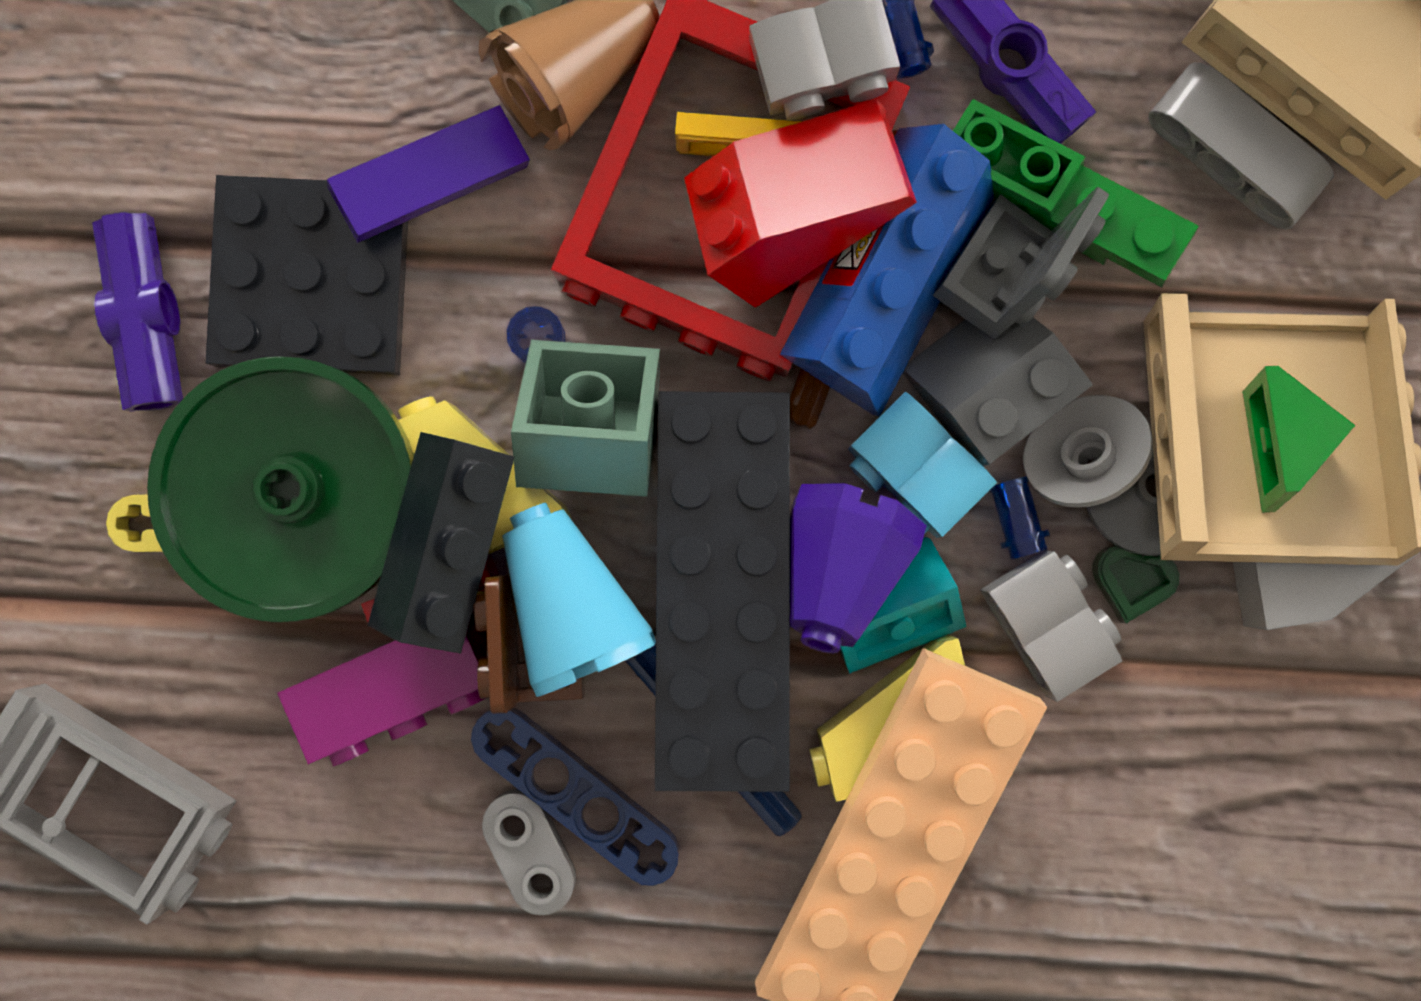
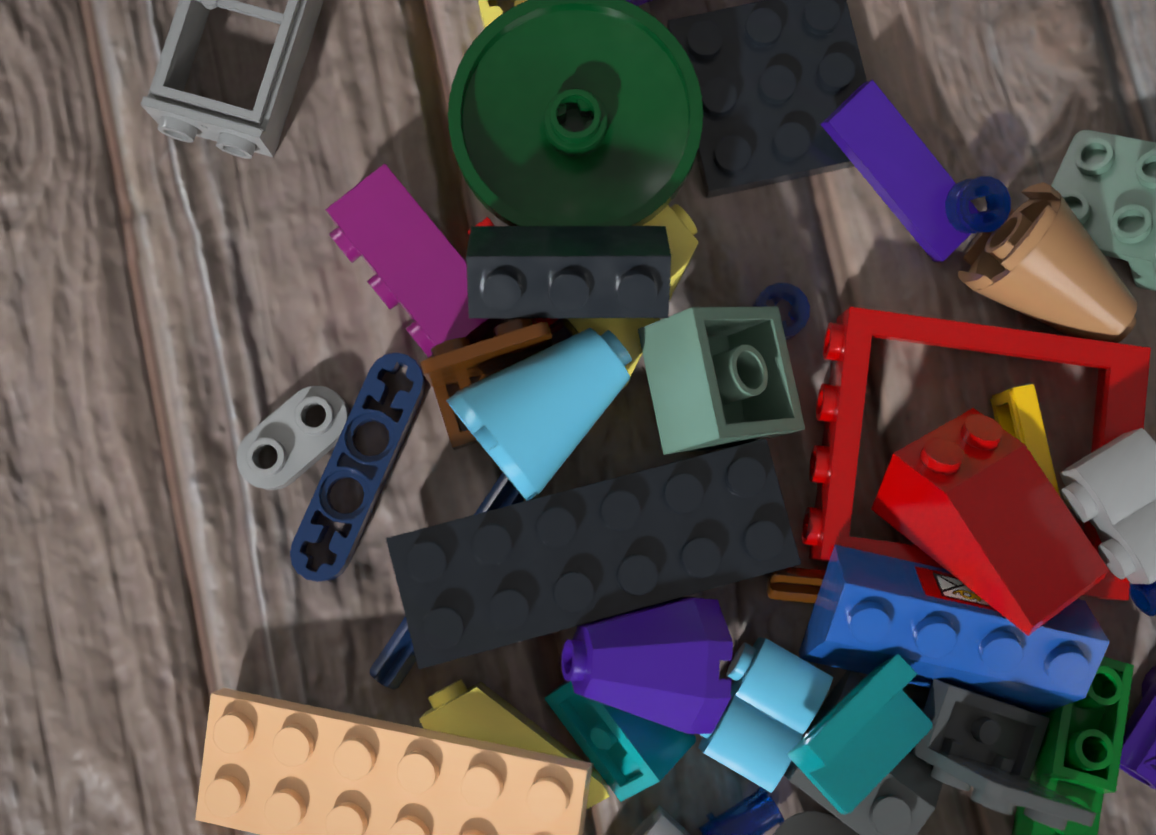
camera: 70 degrees right, 5 degrees down
(500, 98) = (997, 201): none -> clear blue bush
(968, 382) = (863, 736): none -> teal panel

